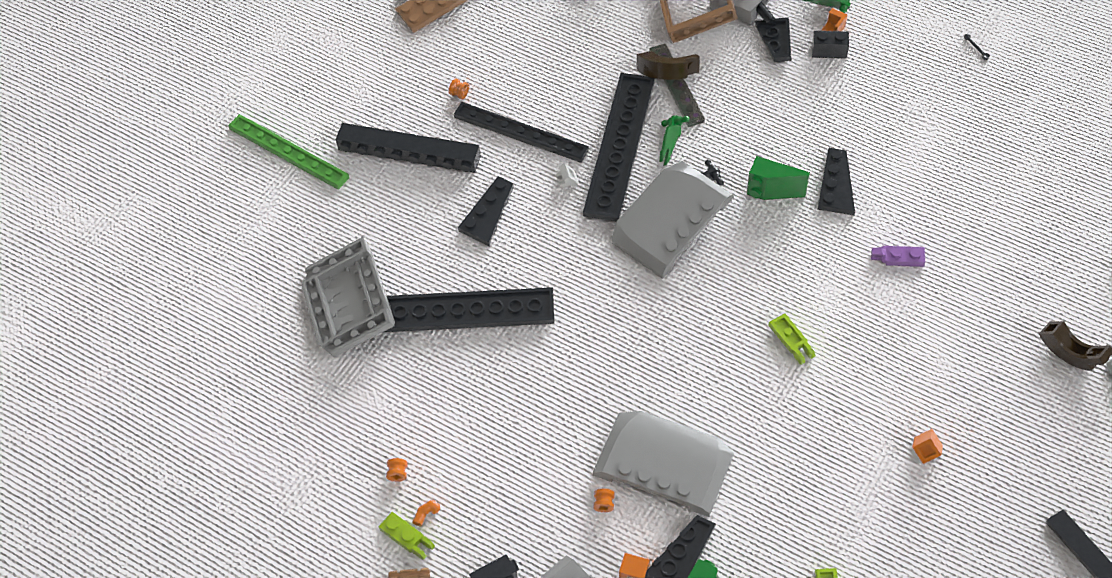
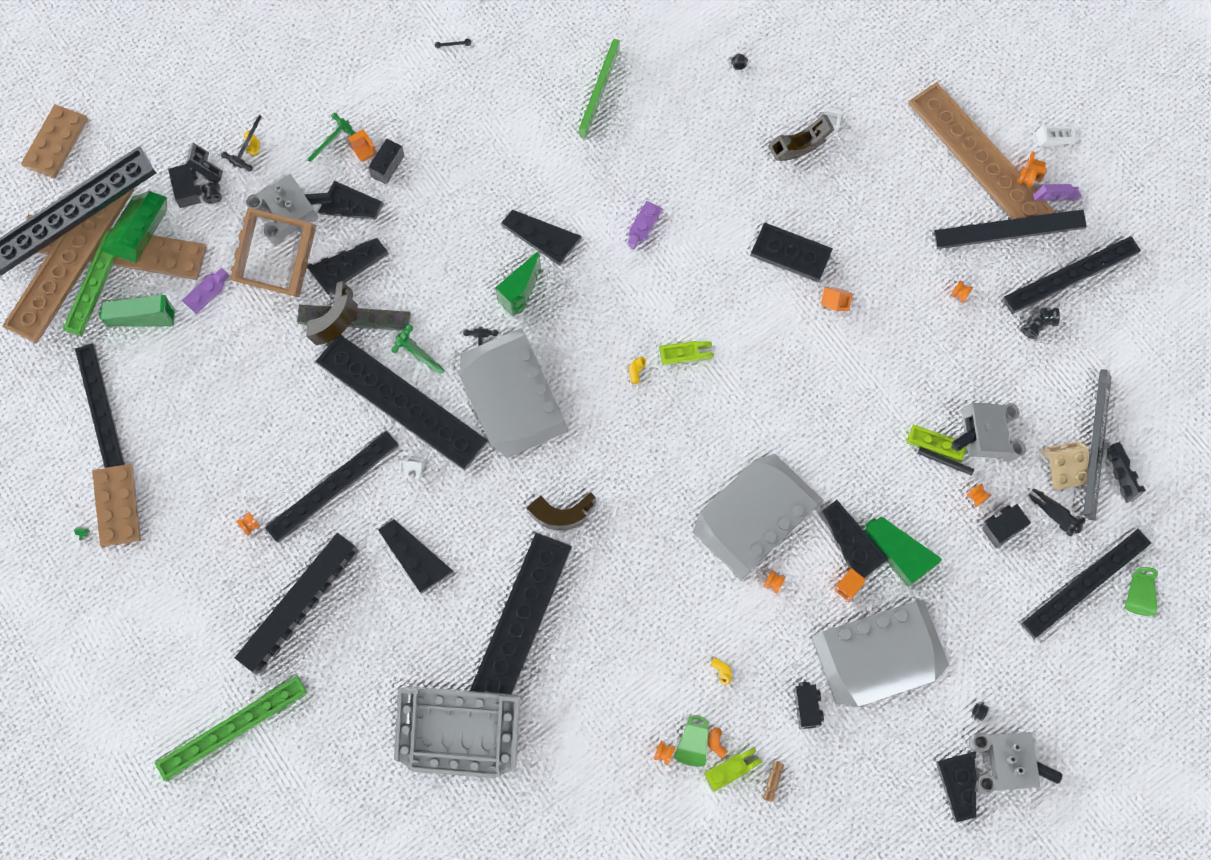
camera: 70 degrees left, 15 degrees up
(415, 491) = (693, 743): none -> bright green piece
(497, 492) = (724, 671): none -> yellow arm
(577, 306) = (561, 519): none -> dark brown arch
(721, 59) = (347, 264): none -> black wing
(751, 304) = (635, 368): none -> yellow arm
(952, 388) = (791, 252): none -> black plate
(1011, 166) = (599, 88): none -> bright green tile
(1011, 560) = (961, 291): none -> orange wheel

